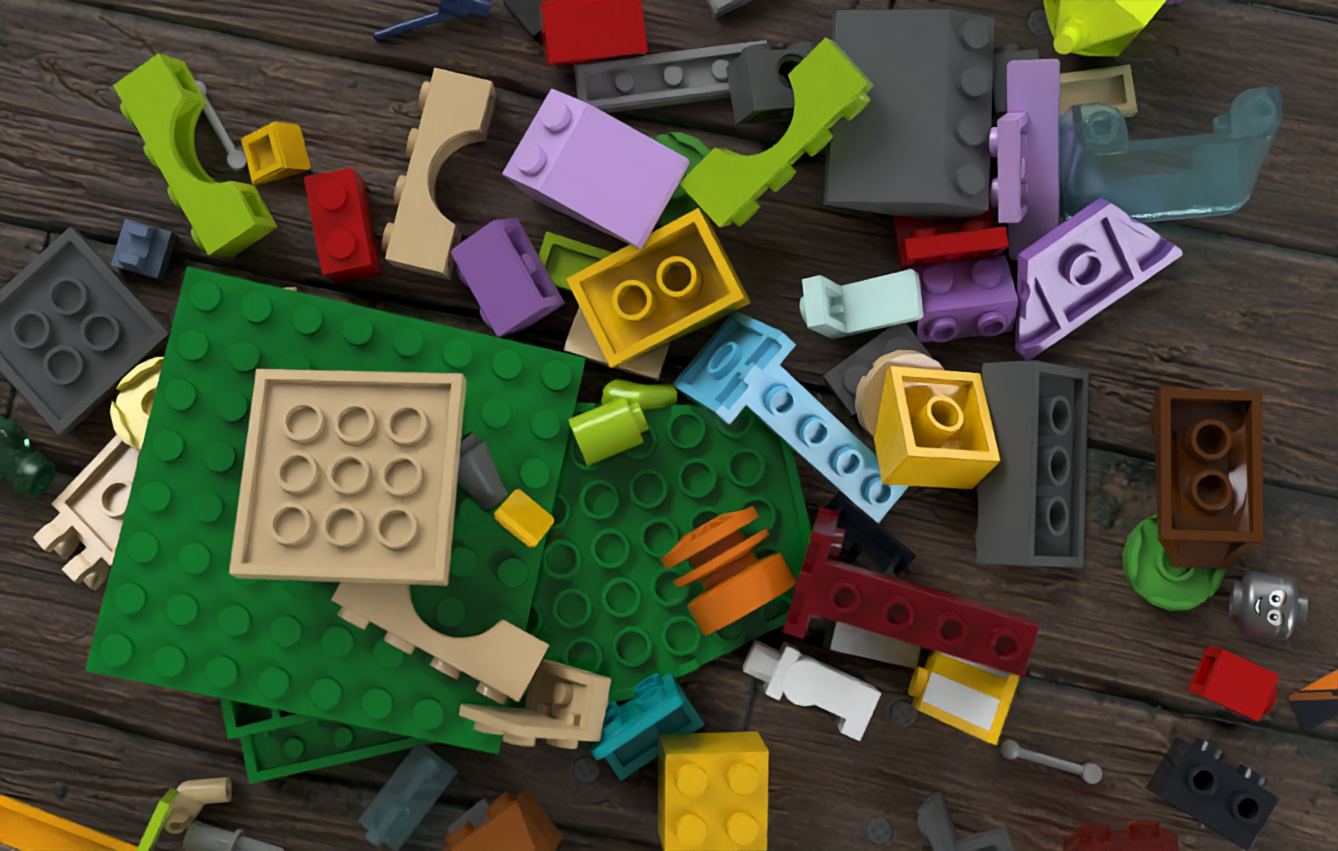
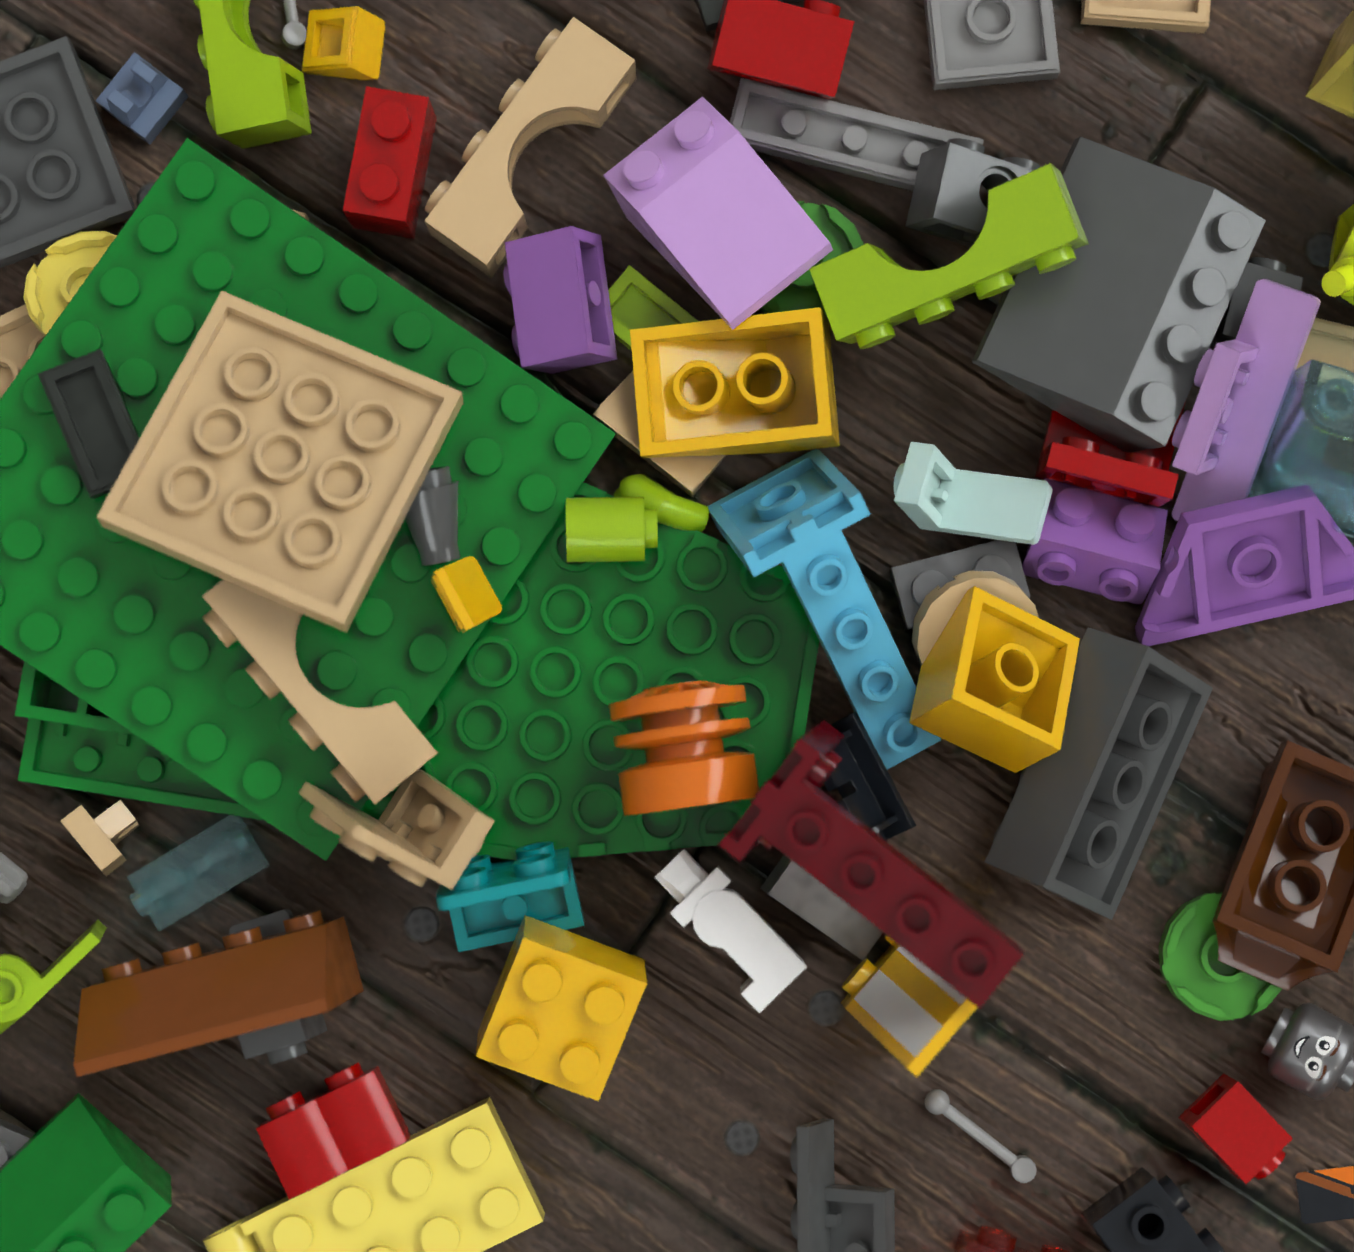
camera: 15 degrees right, 0 degrees up
(197, 500) = (91, 419): none -> pearl dark grey tile
(326, 799) = (102, 834): none -> tan tile

